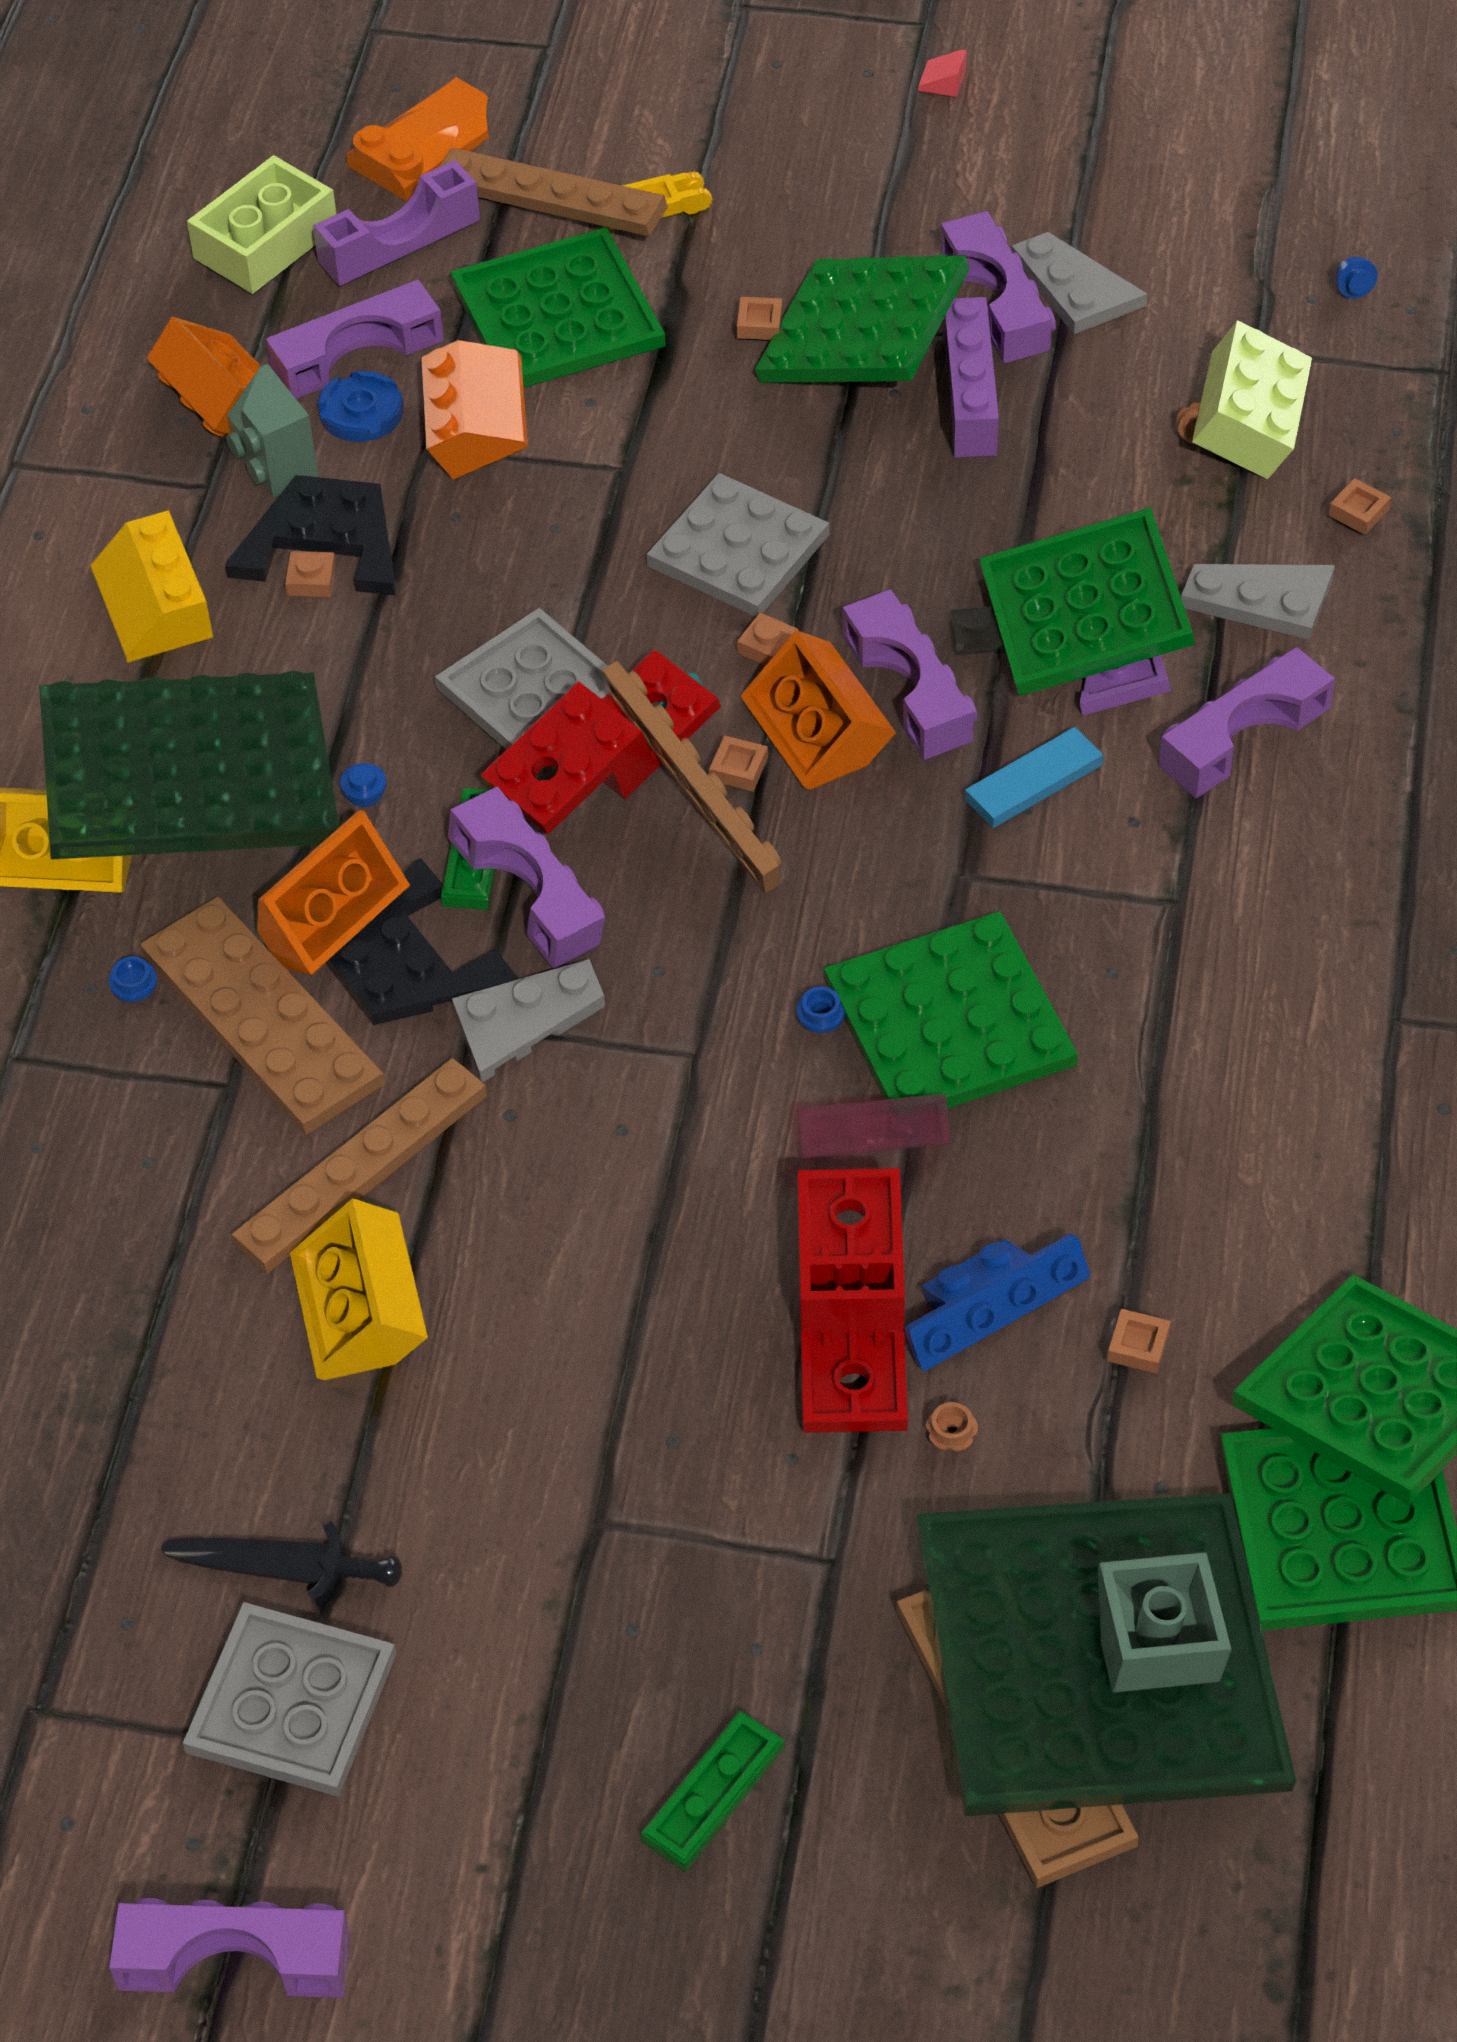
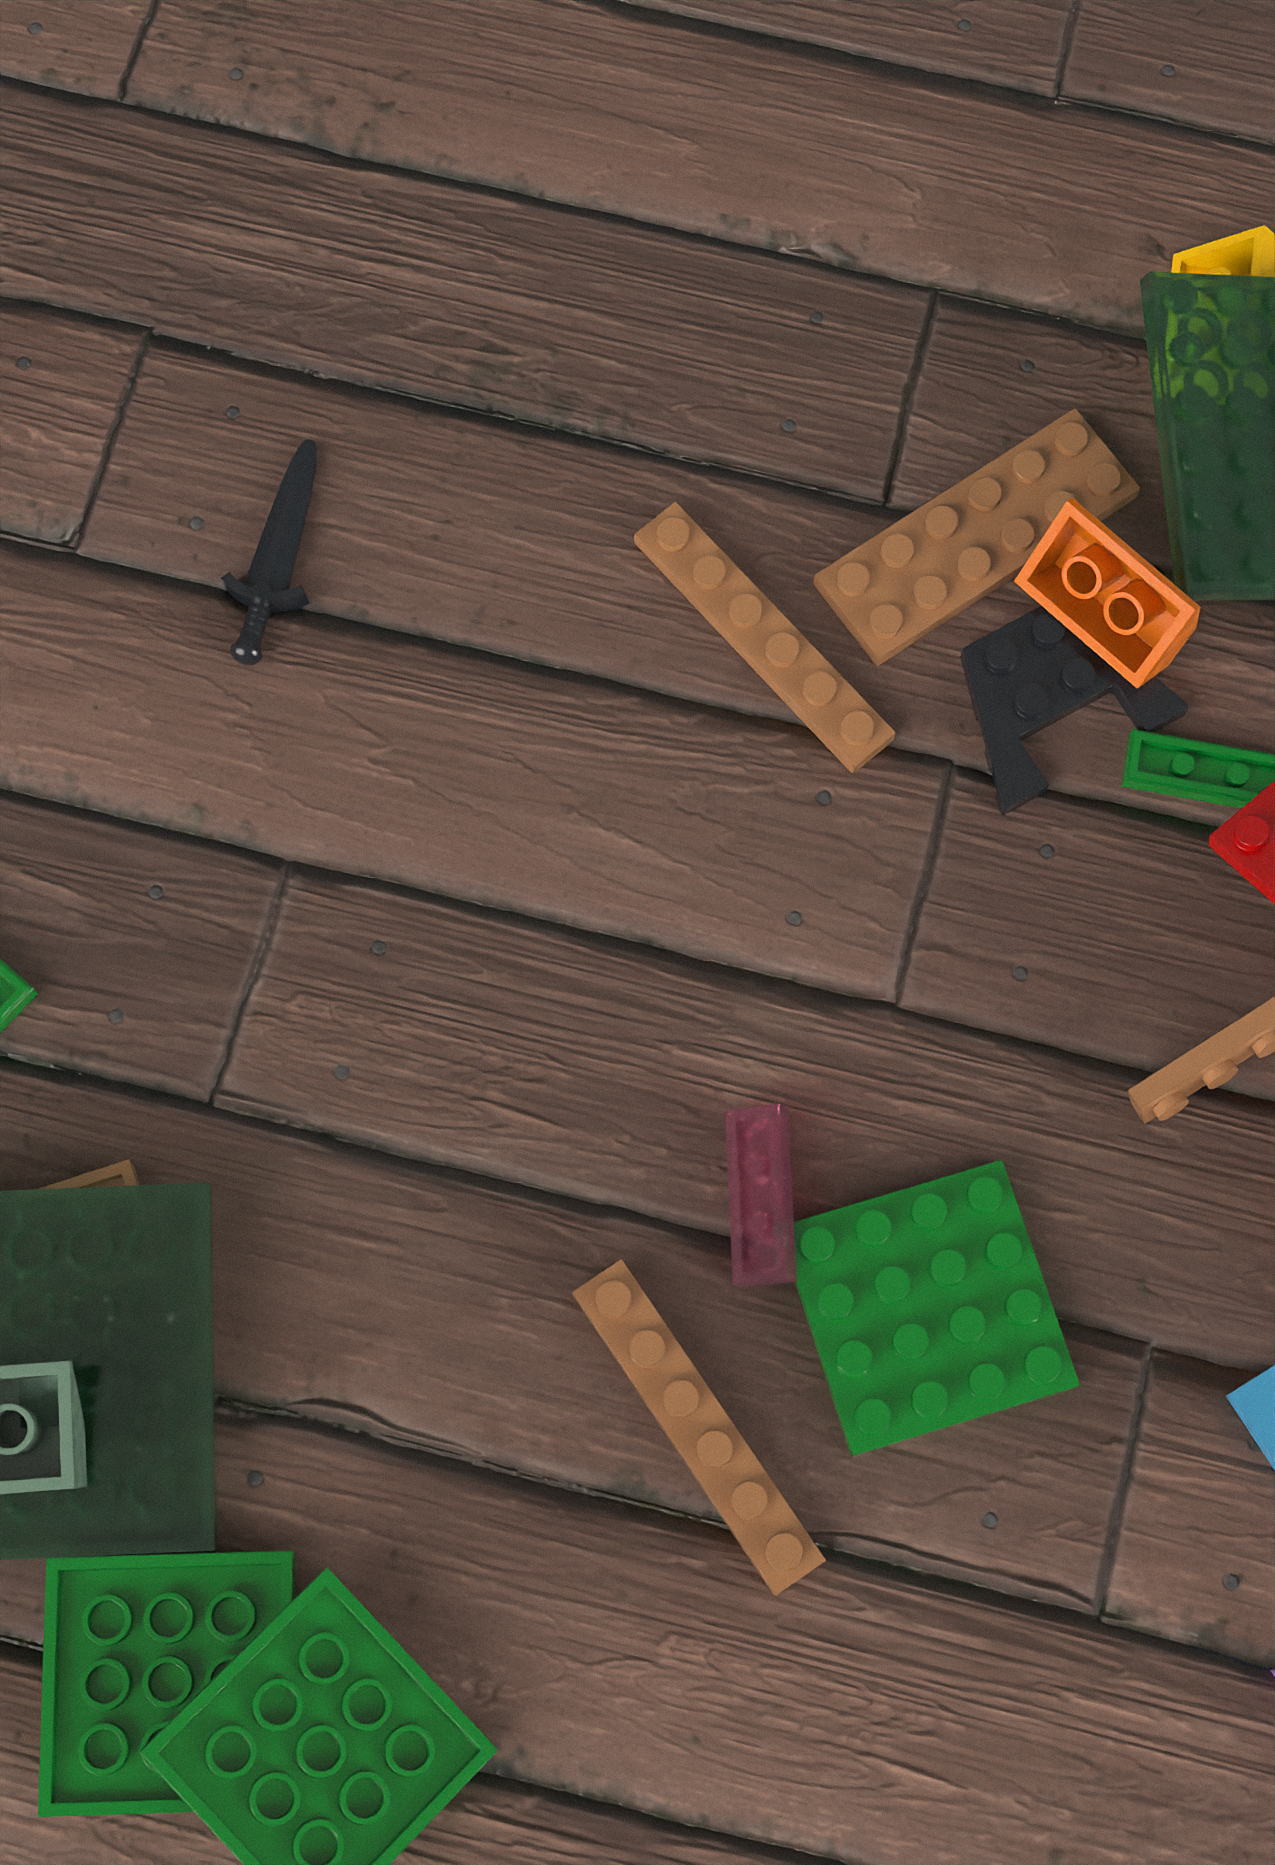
camera: 90 degrees right, 20 degrees up
(132, 979) = (1027, 403): blue plate -> none
(290, 1699) = (112, 554): light grey plate -> none
(358, 1292) = (586, 627): yellow slope -> none
(495, 836) = (1203, 780): medium lavender arch -> none
(517, 1014) = (961, 816): light grey wing -> none
(818, 1000) = (946, 1135): blue plate -> none
(852, 1300) = (505, 1140): red bracket -> none
(956, 1416) = (348, 1230): nougat plate -> none
(990, 1294) = (522, 1306): blue bracket -> none
(1068, 1165) = (698, 1428): none -> medium nougat plate
(1139, 1341) = (435, 1474): nougat plate -> none

